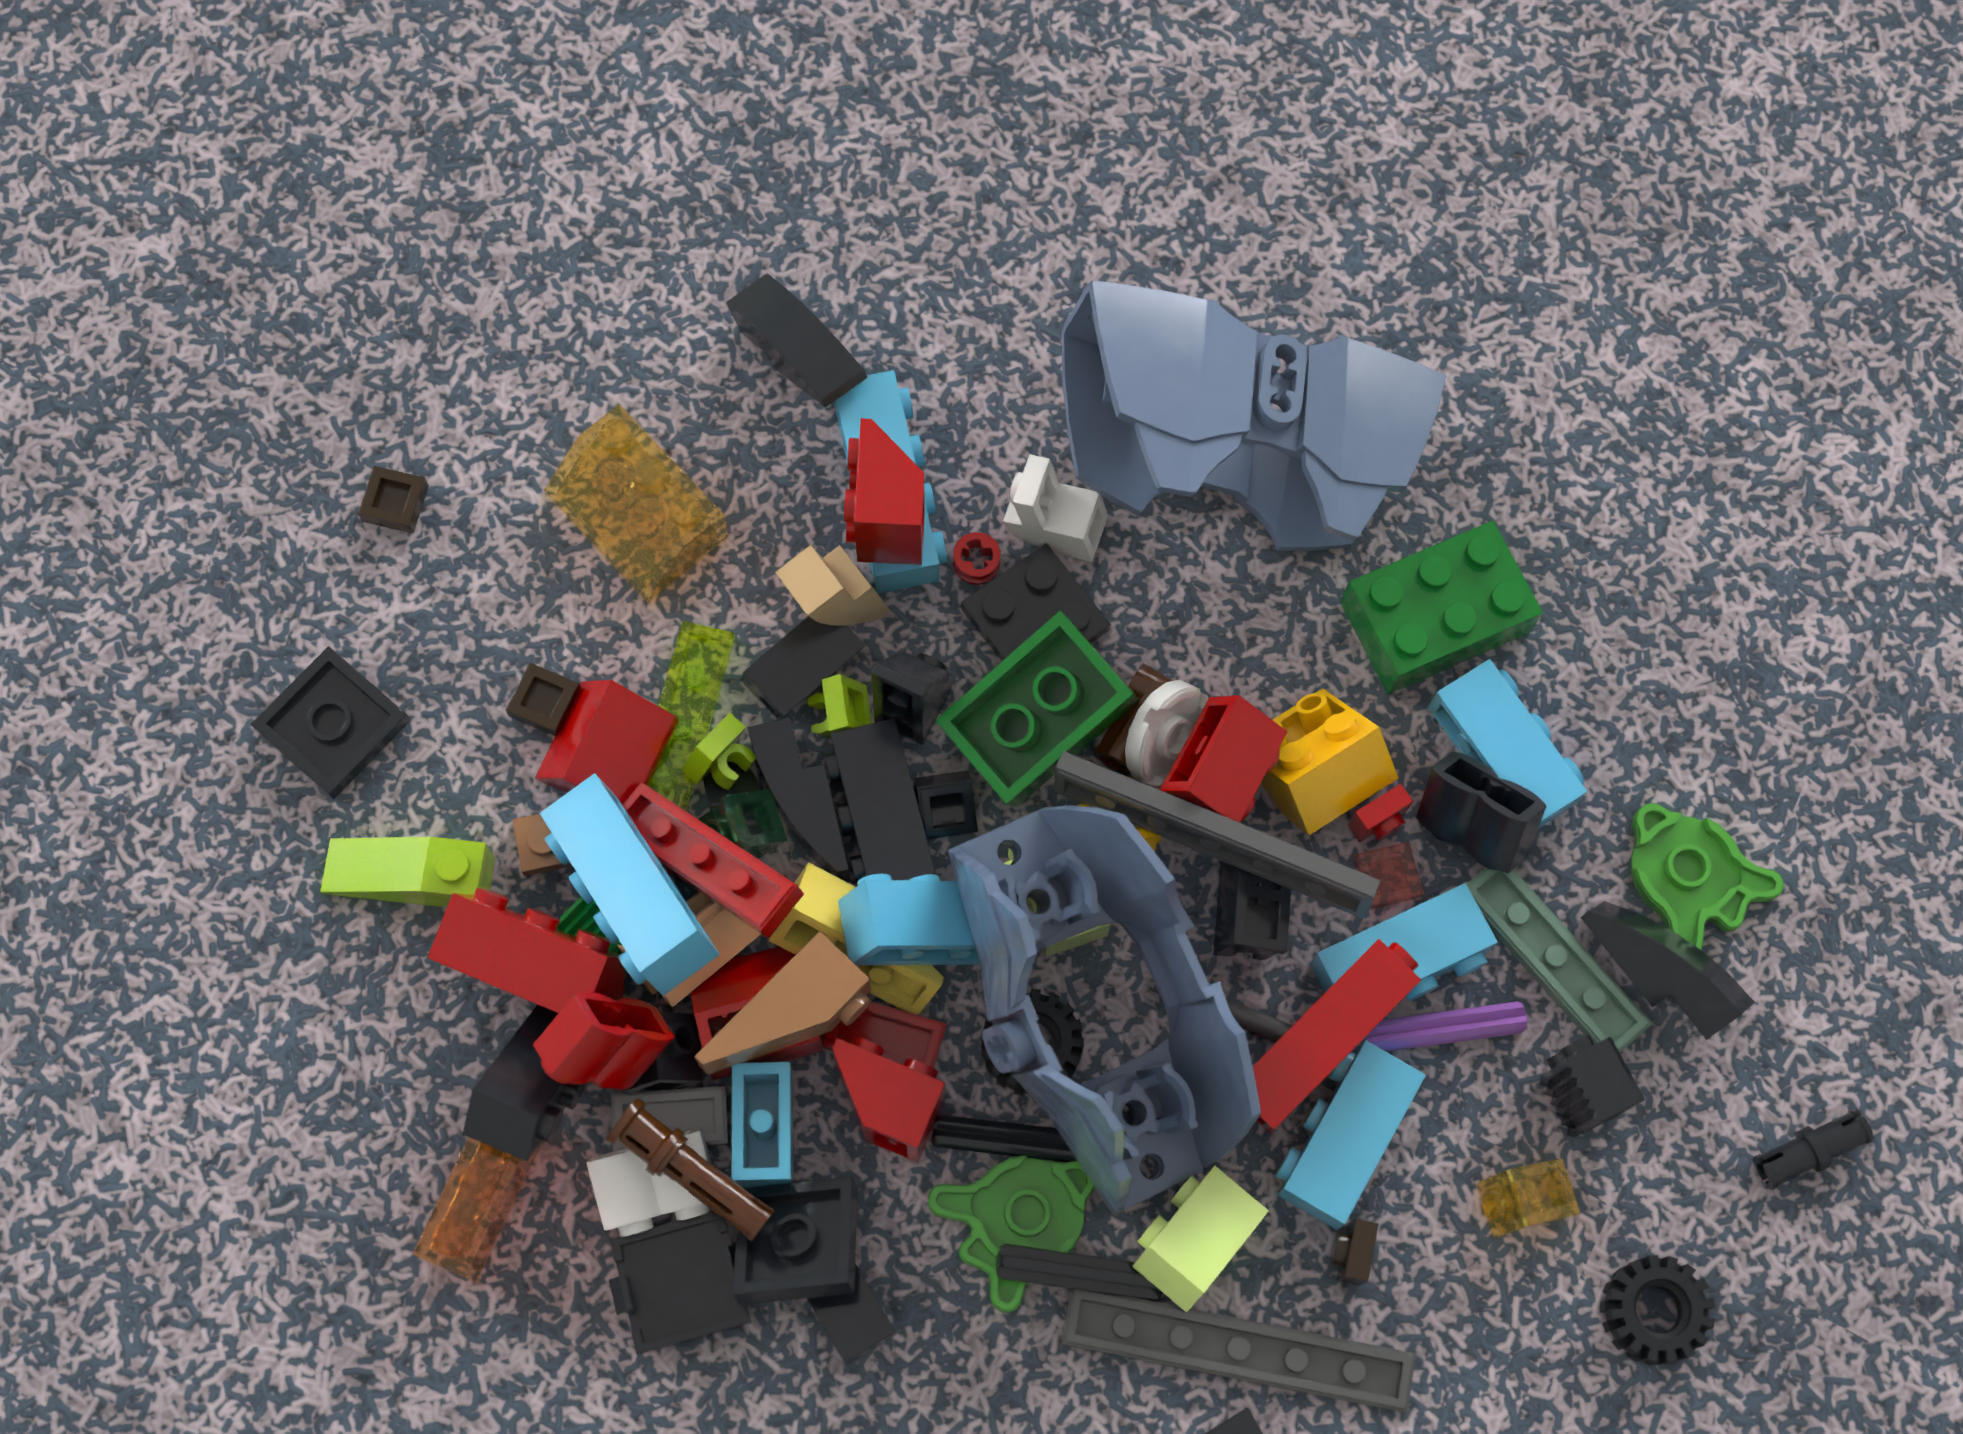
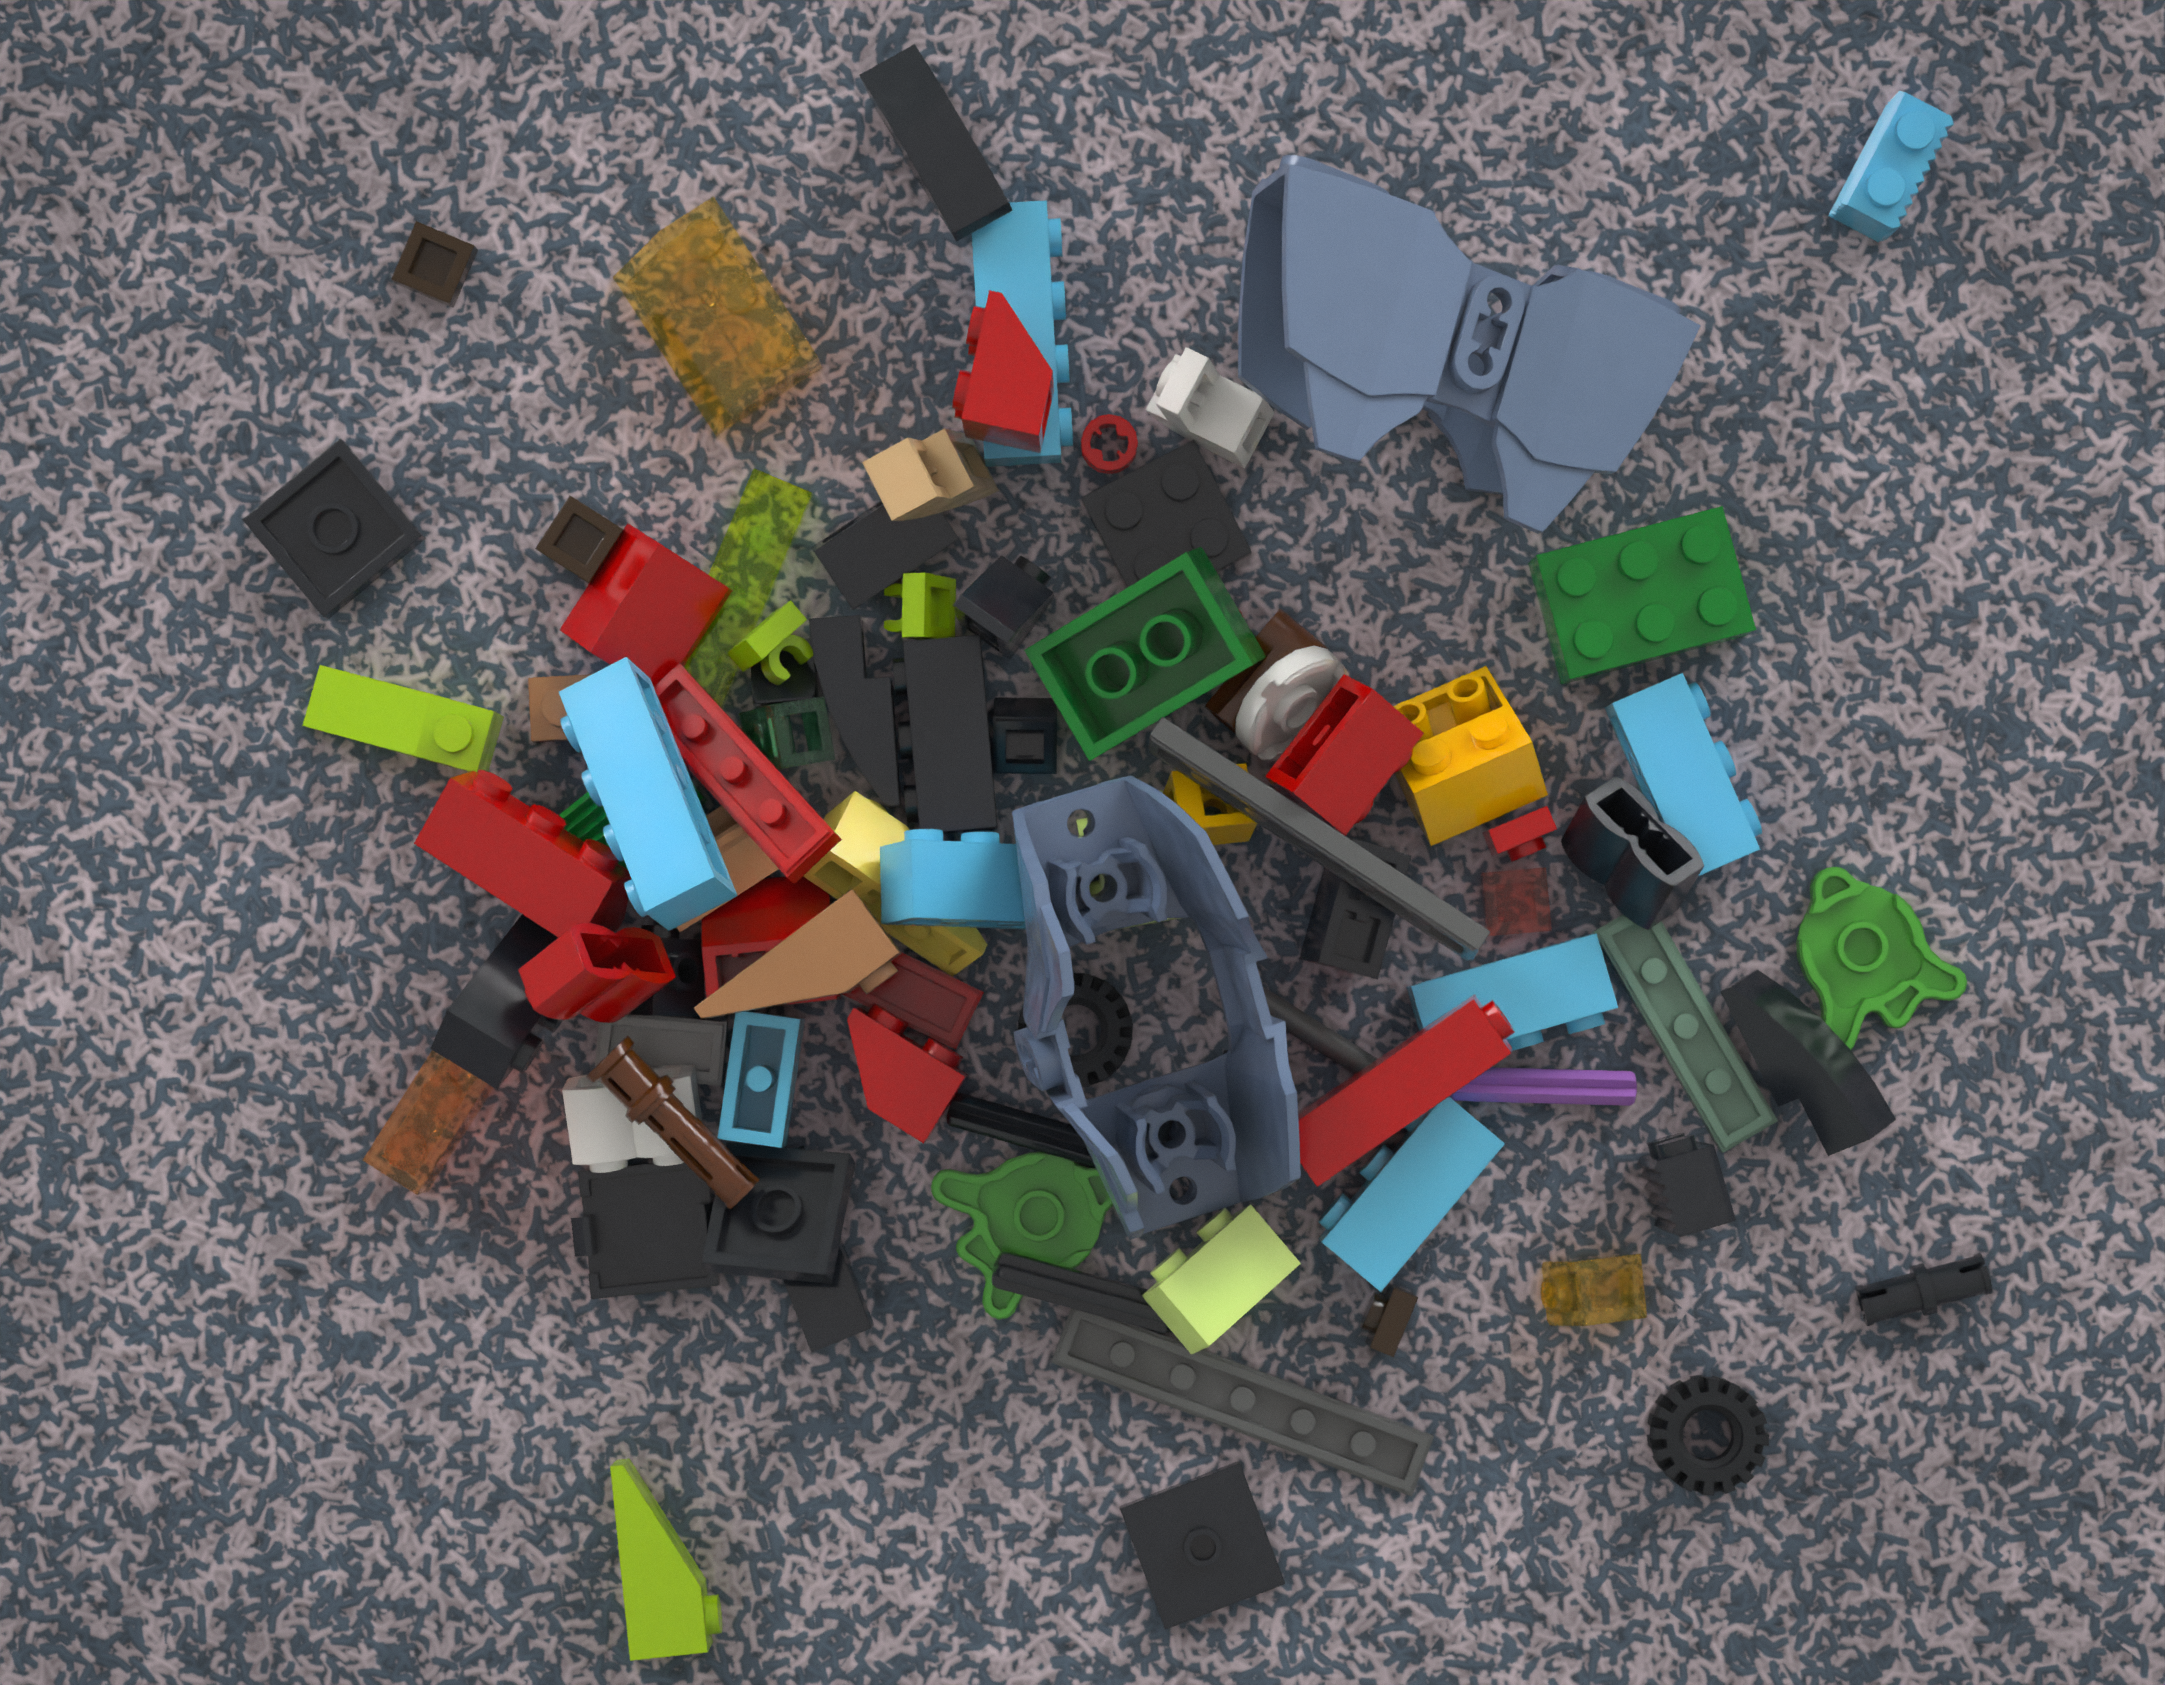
camera: 10 degrees right, 15 degrees up
(1565, 253) = (1891, 167): none -> medium azure brick

